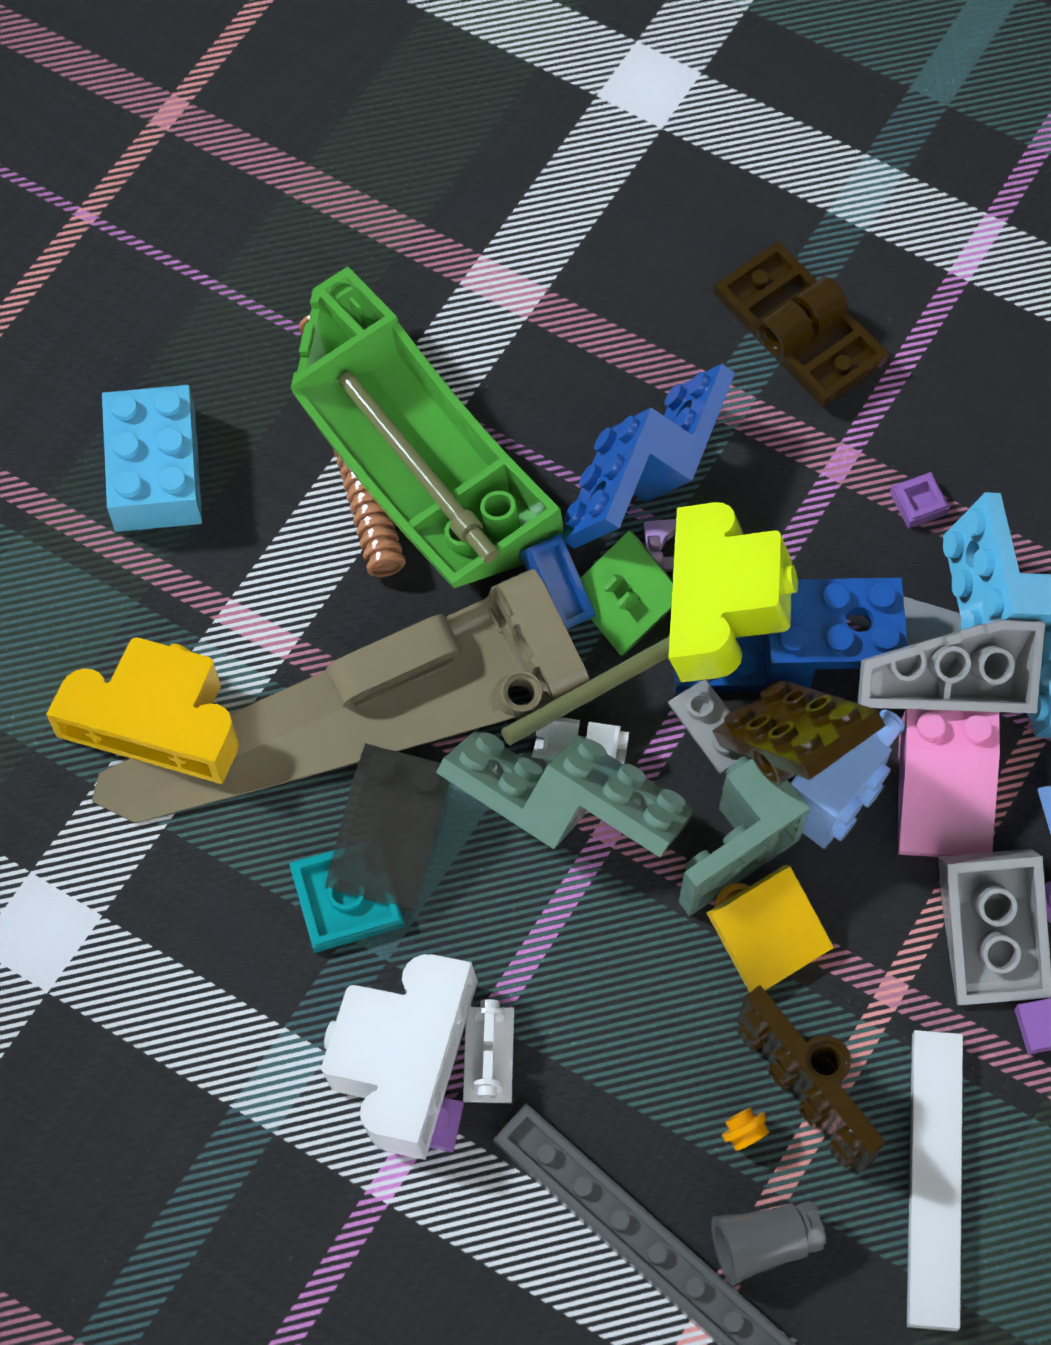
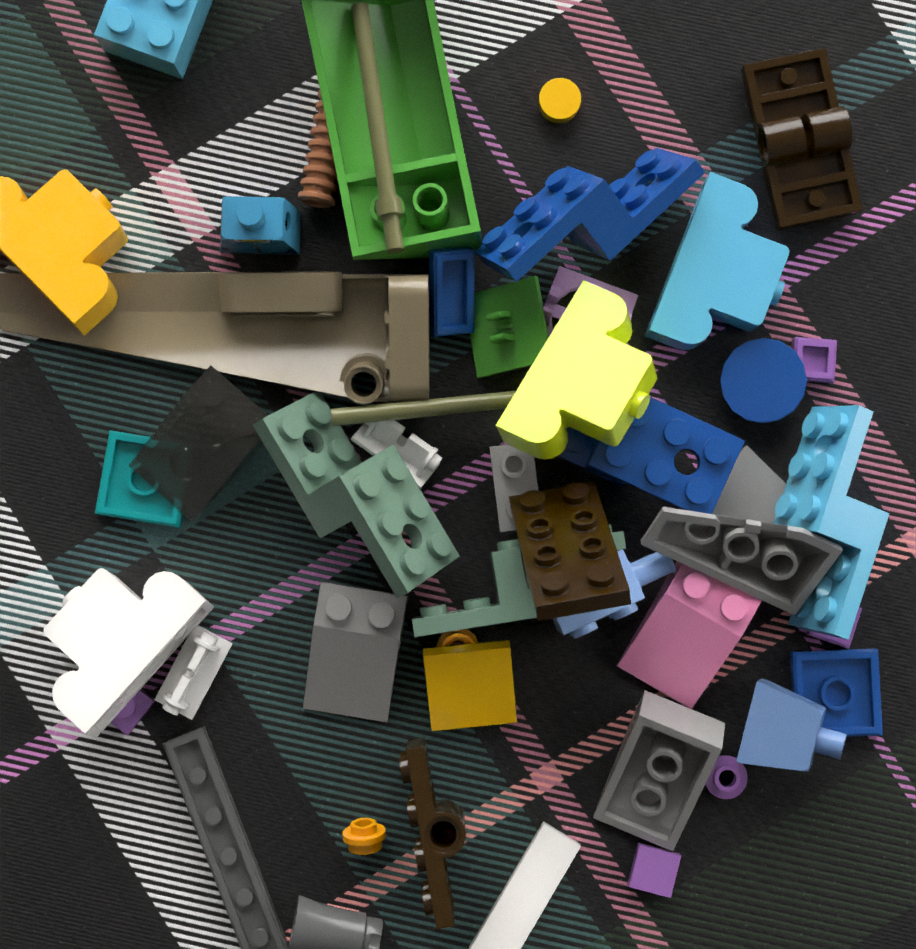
camera: 25 degrees right, 20 degrees up
(341, 609) = (259, 226): none -> dark azure torso
(565, 387) = (559, 100): none -> yellow tile
(640, 953) = (354, 651): none -> light grey slope
(791, 457) = (718, 269): none -> medium azure brick
(886, 534) = (763, 380): none -> blue tile

